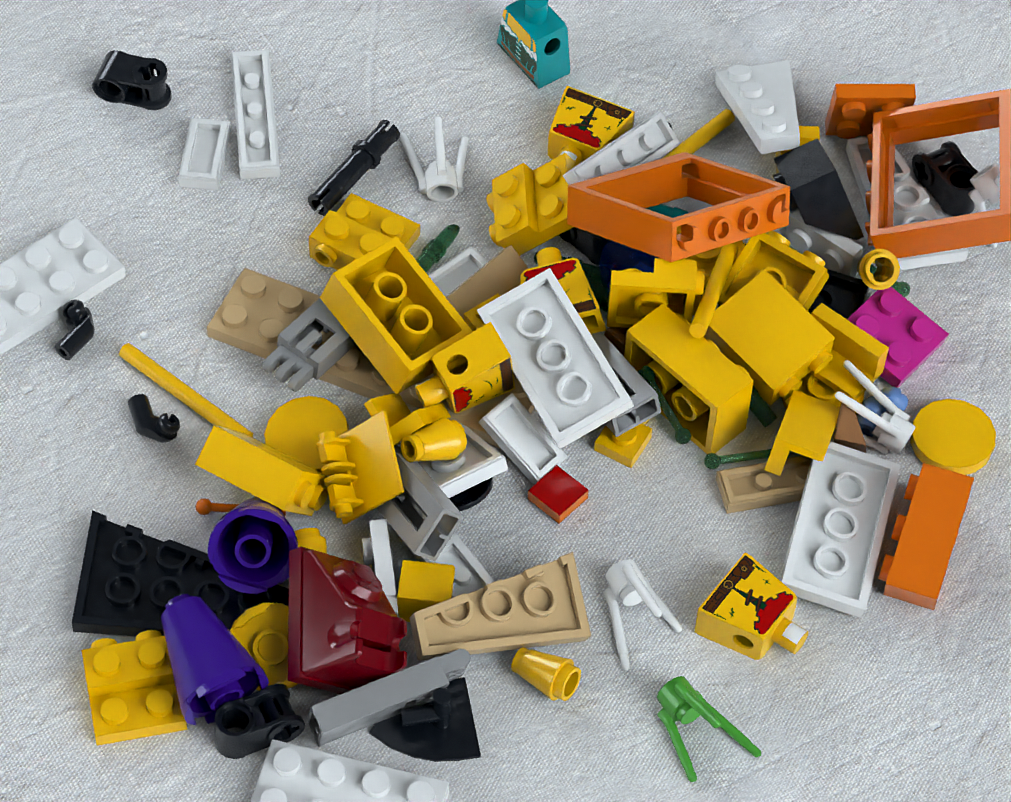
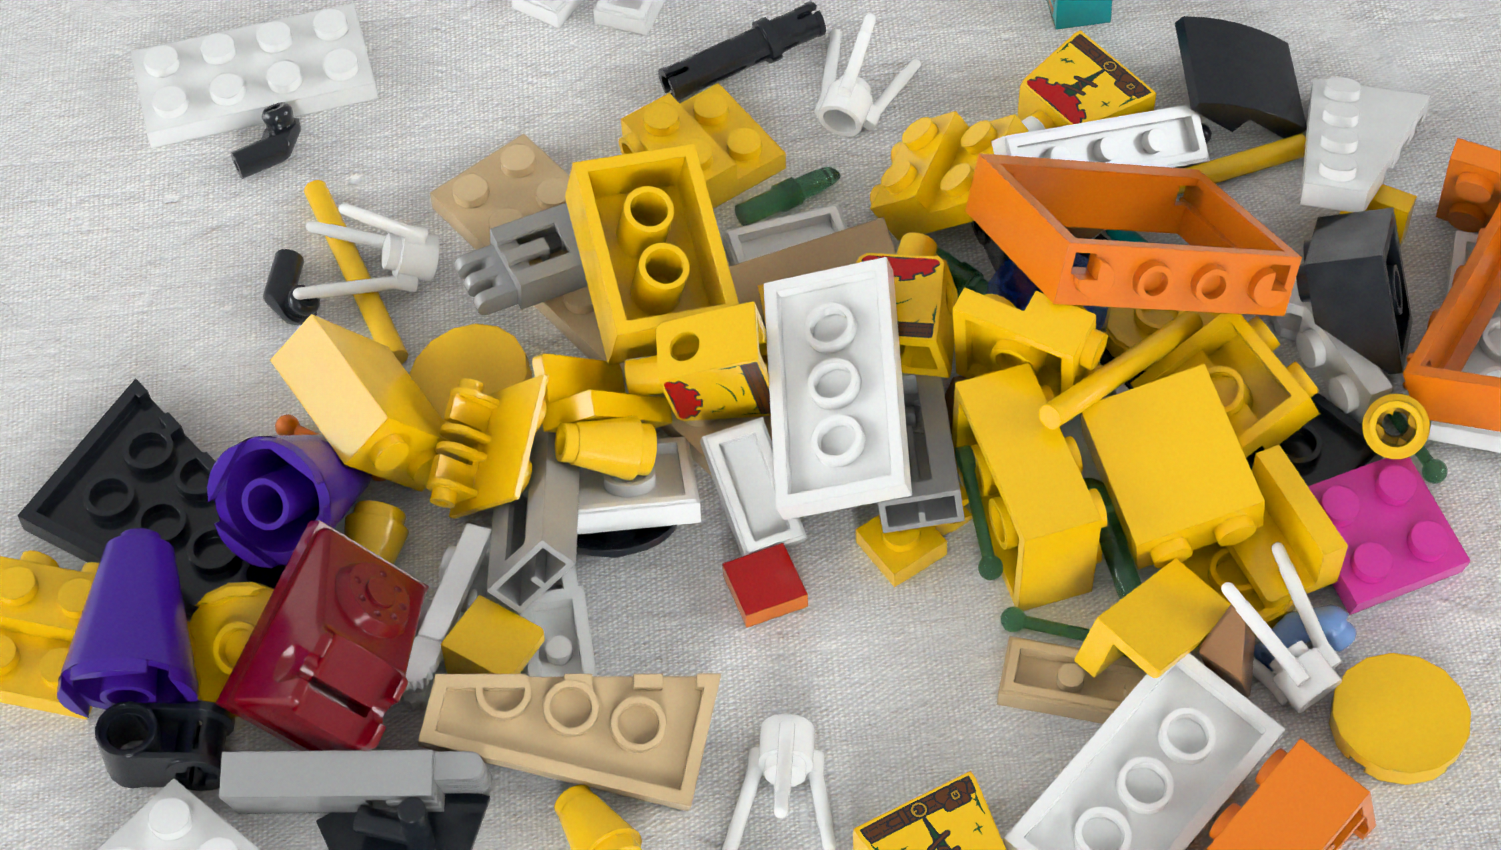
camera: 30 degrees right, 0 degrees up
(220, 370) = (405, 250): none -> white plant
(674, 83) = (1239, 75): none -> black slope

